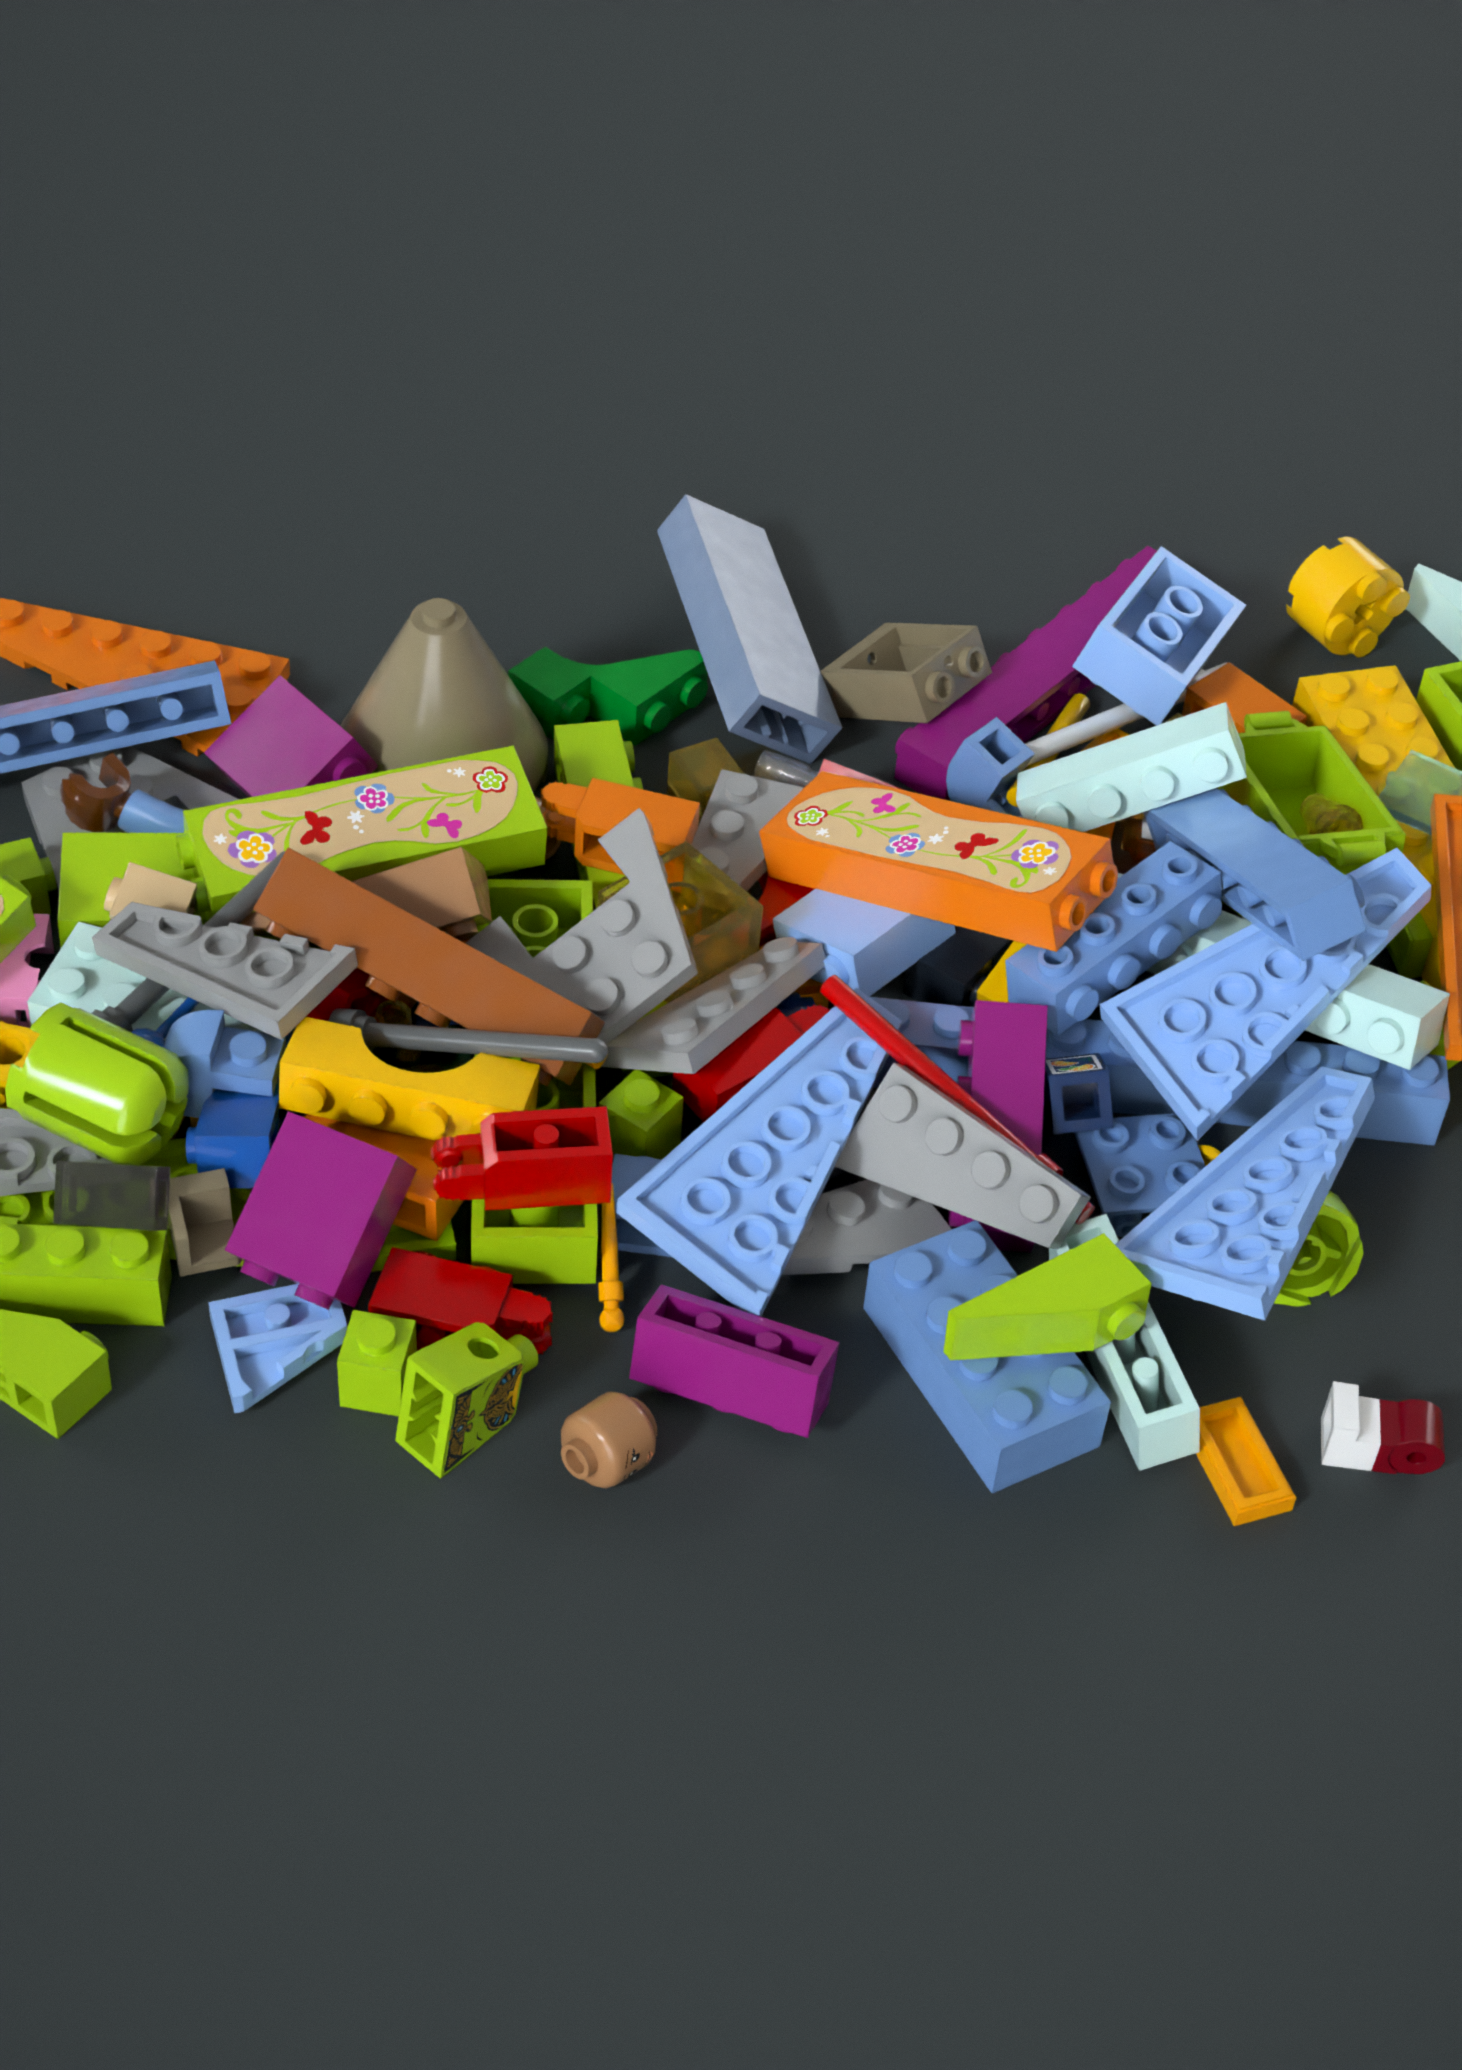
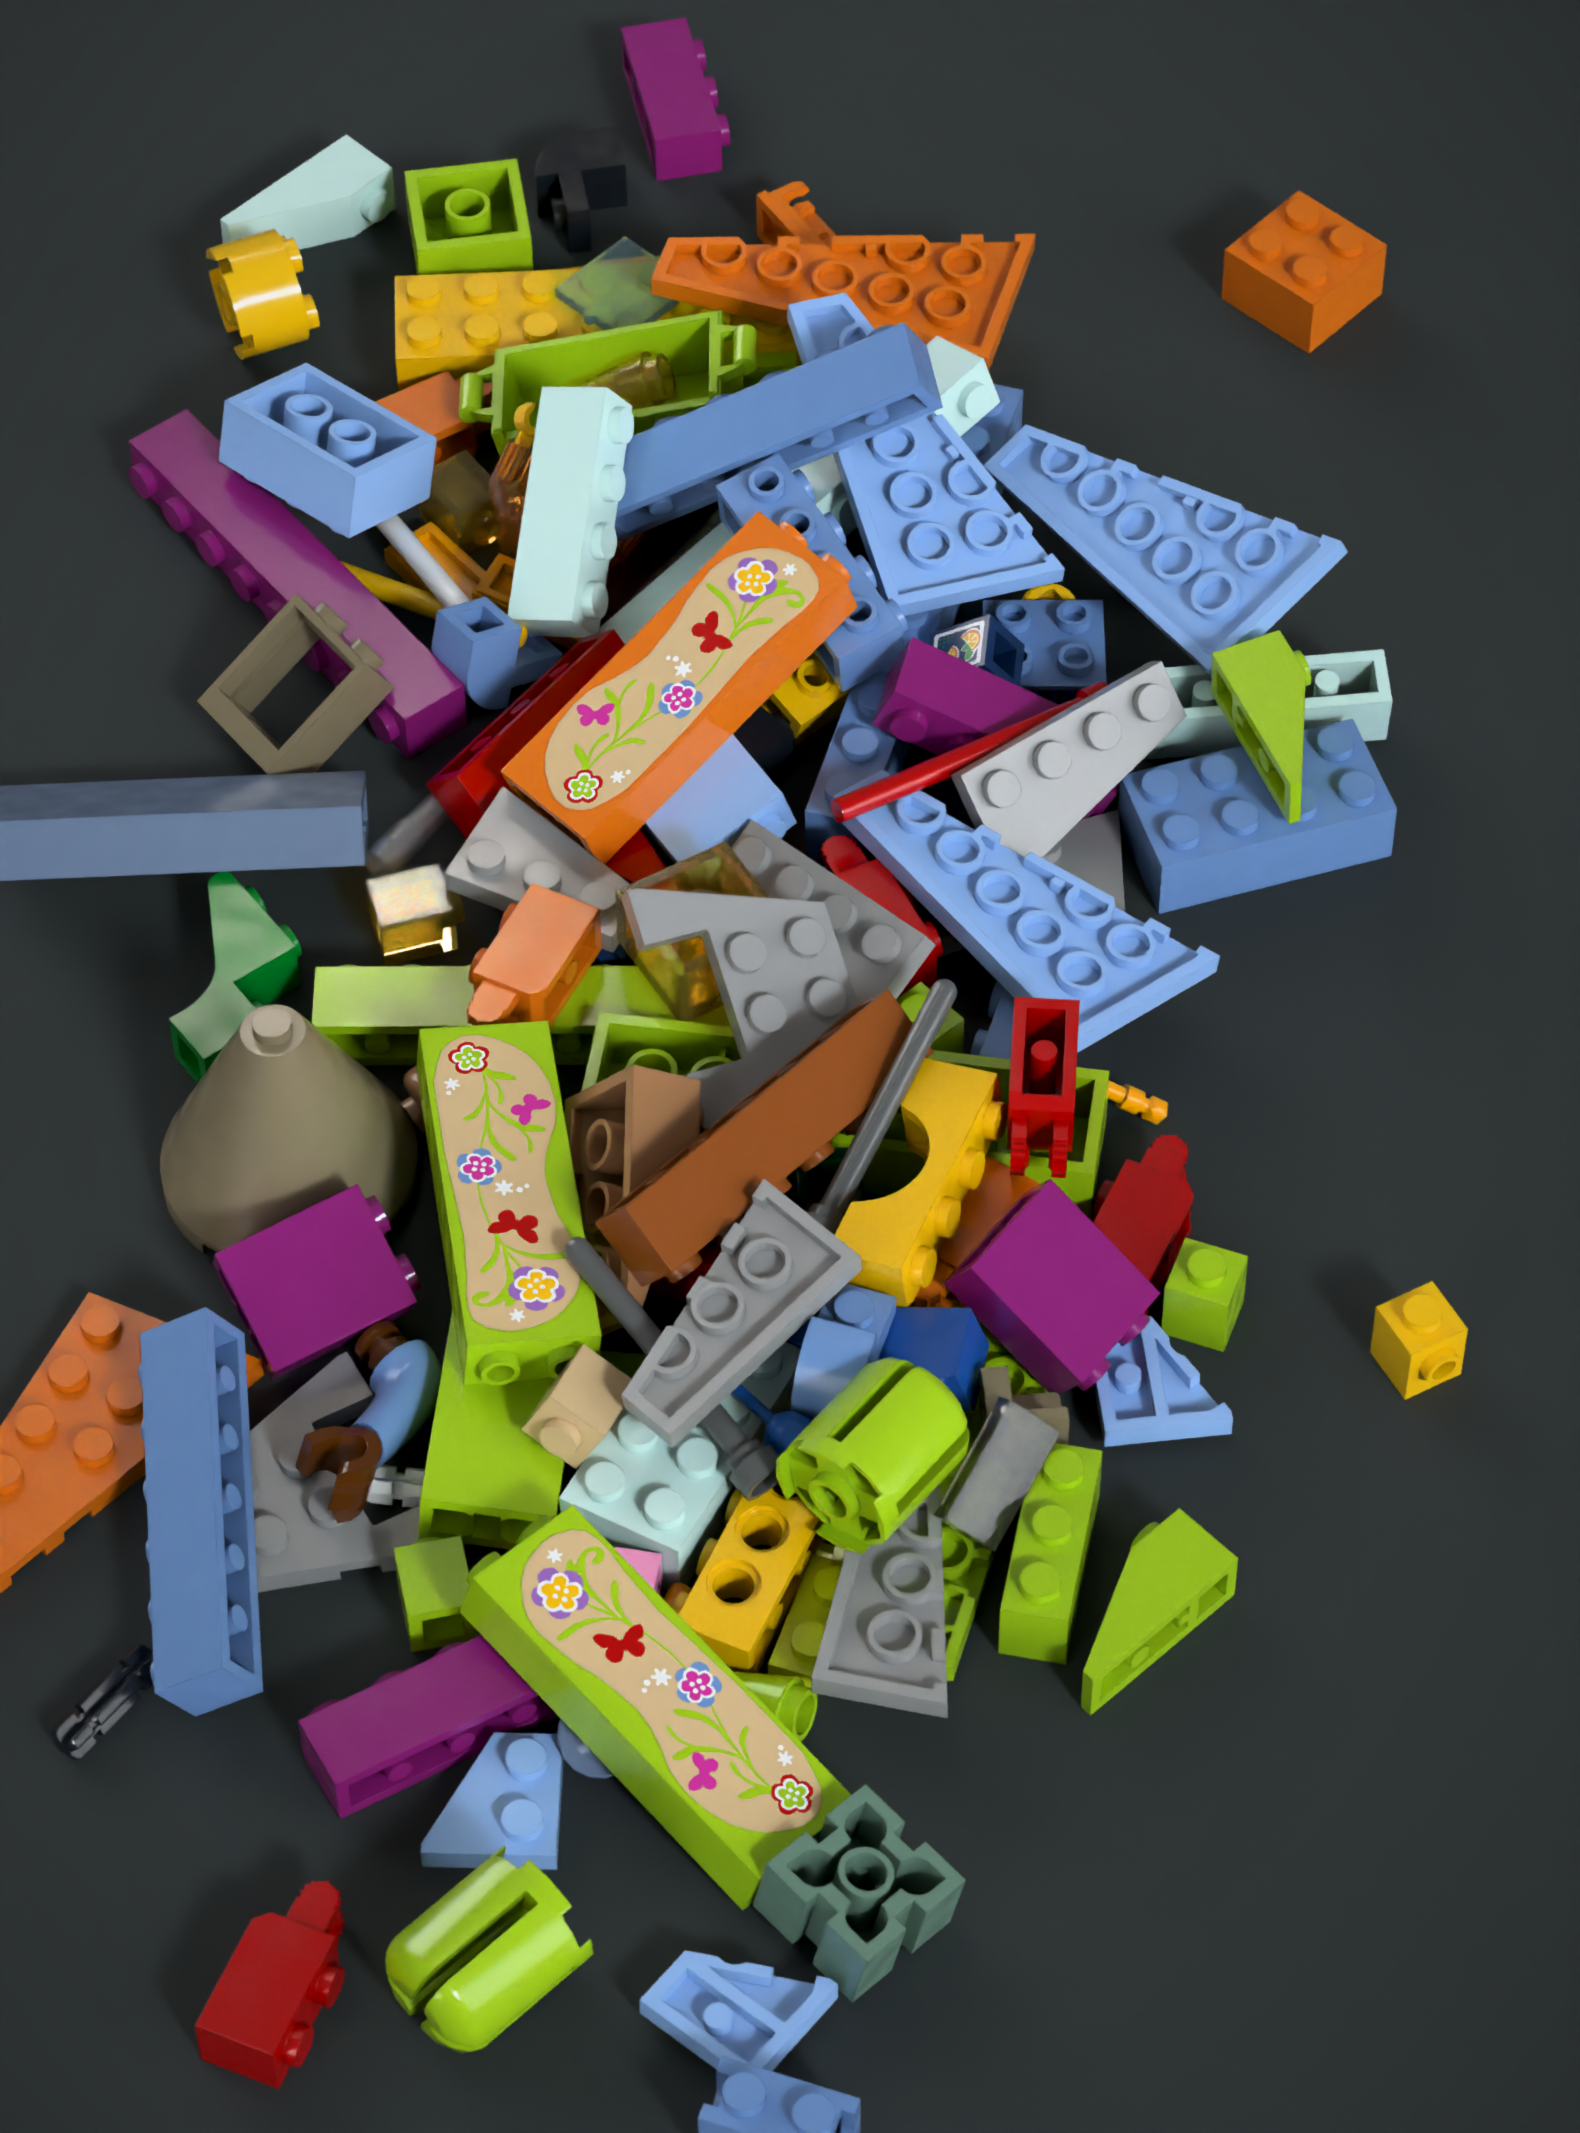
camera: 75 degrees left, 5 degrees up
(344, 1542) = (1418, 1340): none -> yellow brick
(461, 1394) = (1268, 1216): lime torso -> none
(609, 1438) = (1316, 1122): medium nougat head -> none
(733, 1360) = (1248, 1002): magenta brick -> none
(1241, 1464) = (1412, 660): light orange tile -> none
(1380, 1433) = (1376, 551): leg -> none

